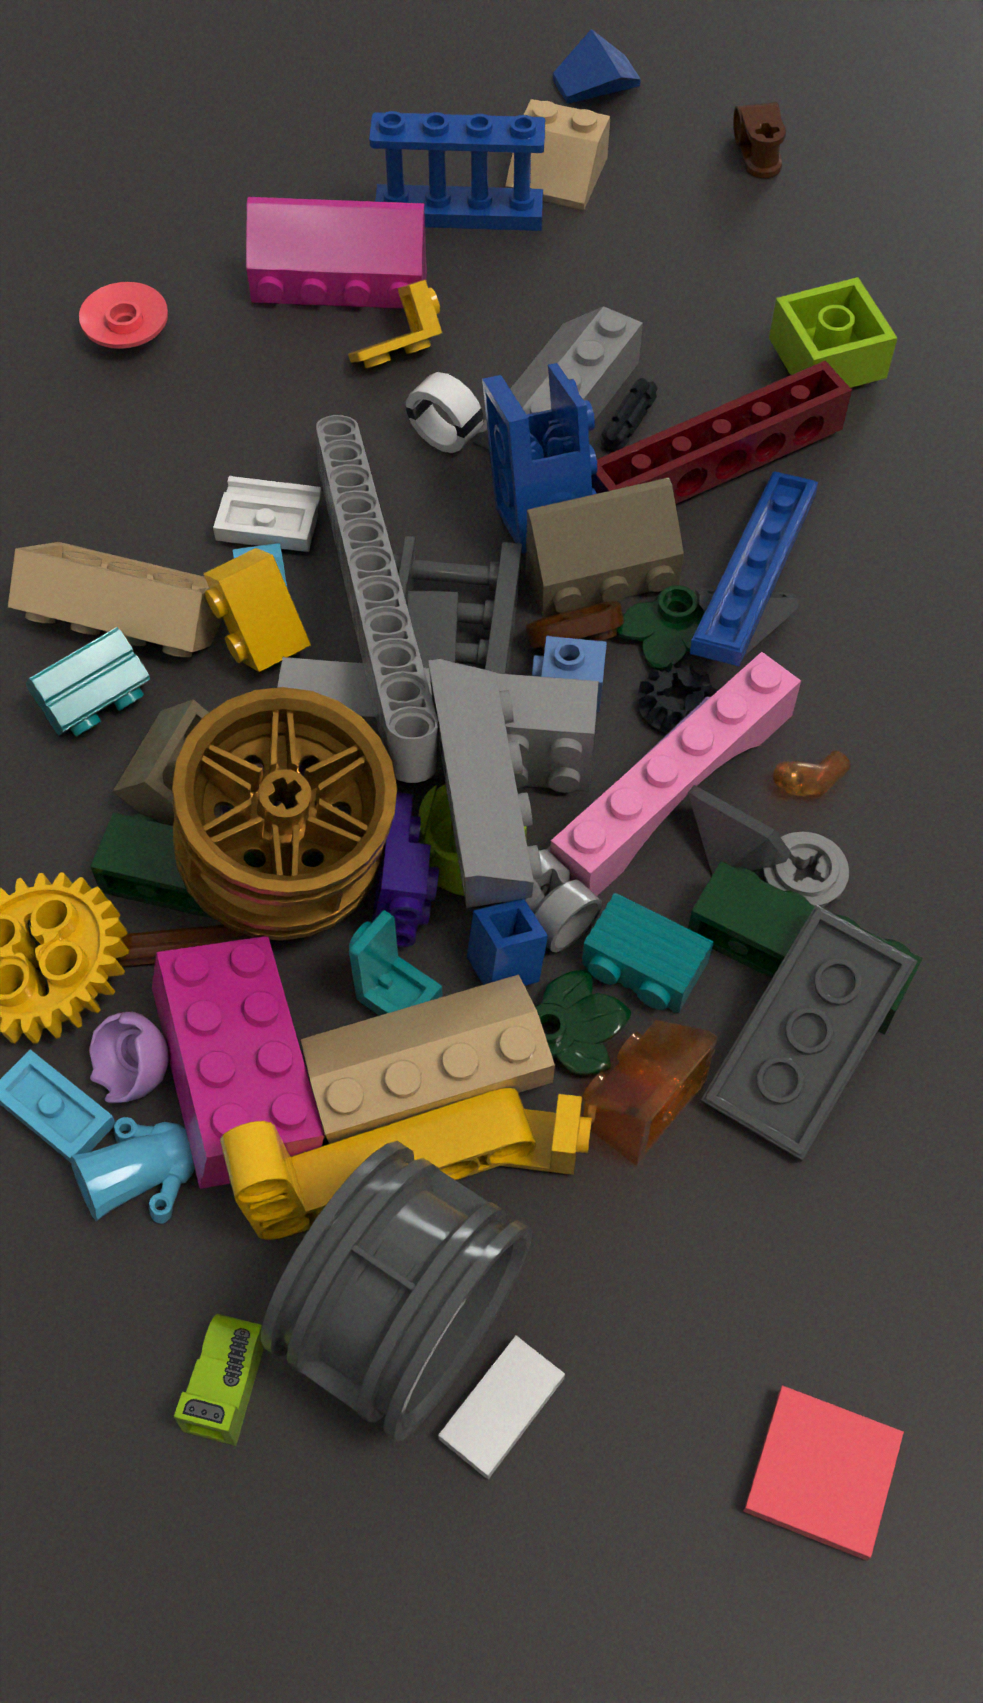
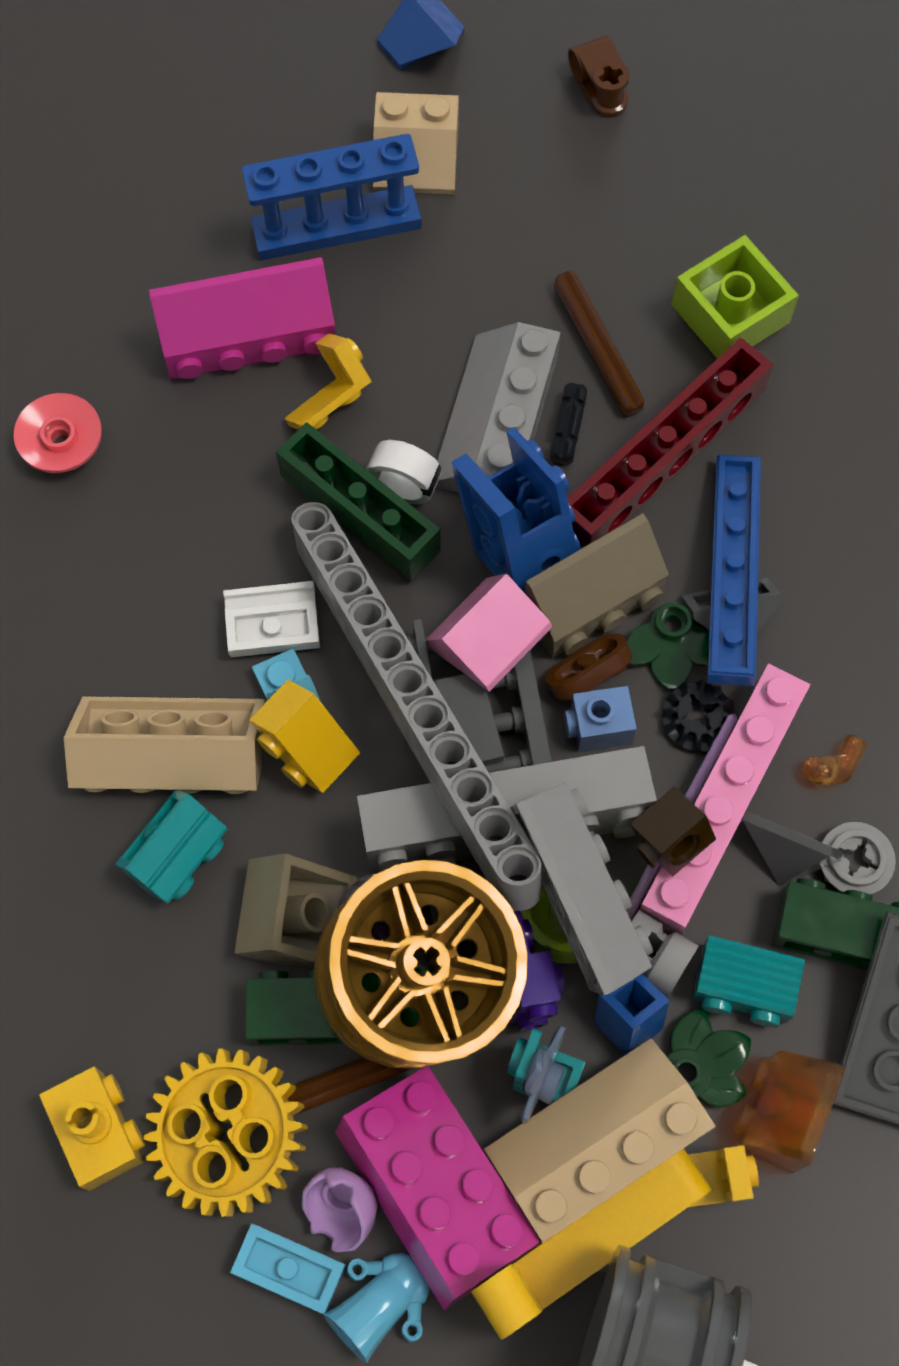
camera: 15 degrees left, 10 degrees up
(384, 968) = (543, 1075): none -> sand blue plate
(392, 428) = (359, 501): none -> dark green brick
(477, 552) = (490, 631): none -> bright pink slope
(603, 771) = (672, 832): none -> dark brown brick
(683, 352) = (599, 343): none -> reddish brown axle

